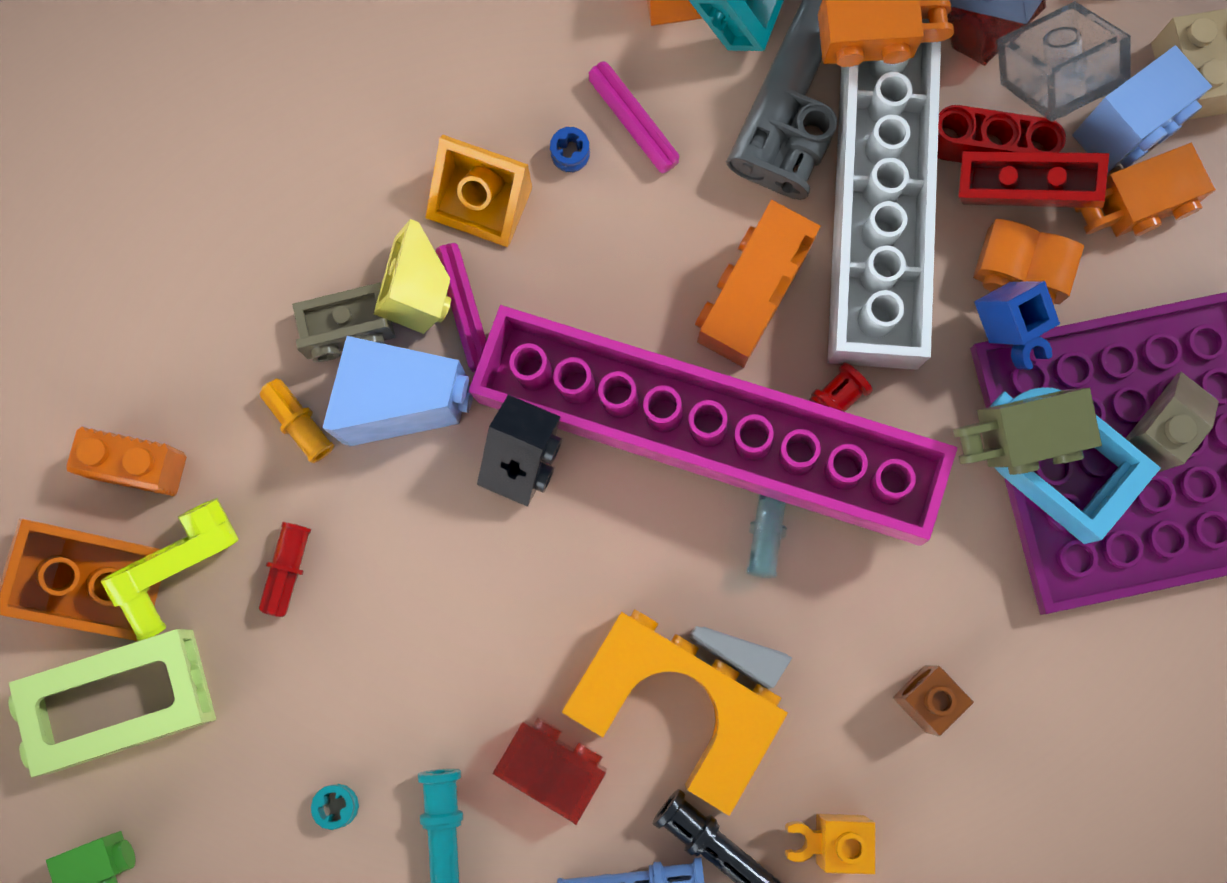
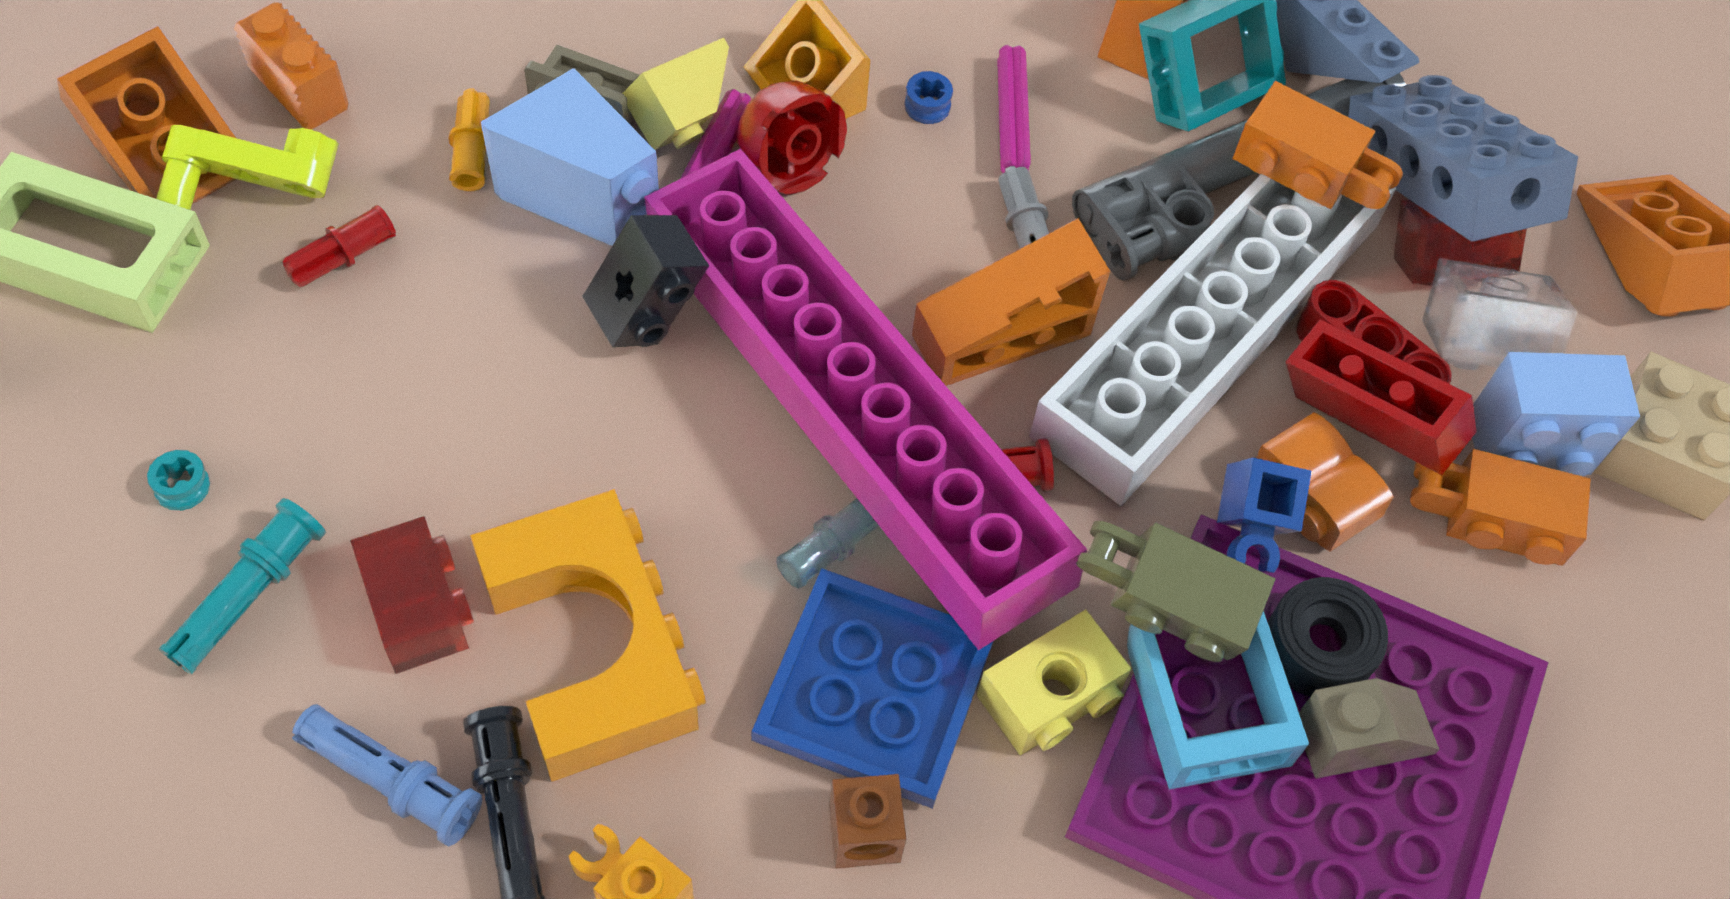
camera: 30 degrees right, 20 degrees down
(508, 258) = (792, 134): none -> red cylinder
(706, 198) = (1025, 212): none -> light grey axle
(752, 660) = (706, 636): light grey slope -> none
(867, 611) = (872, 687): none -> blue plate
(951, 545) = (1071, 653): none -> light yellow brick
(1131, 360) = (1345, 610): none -> black tyre

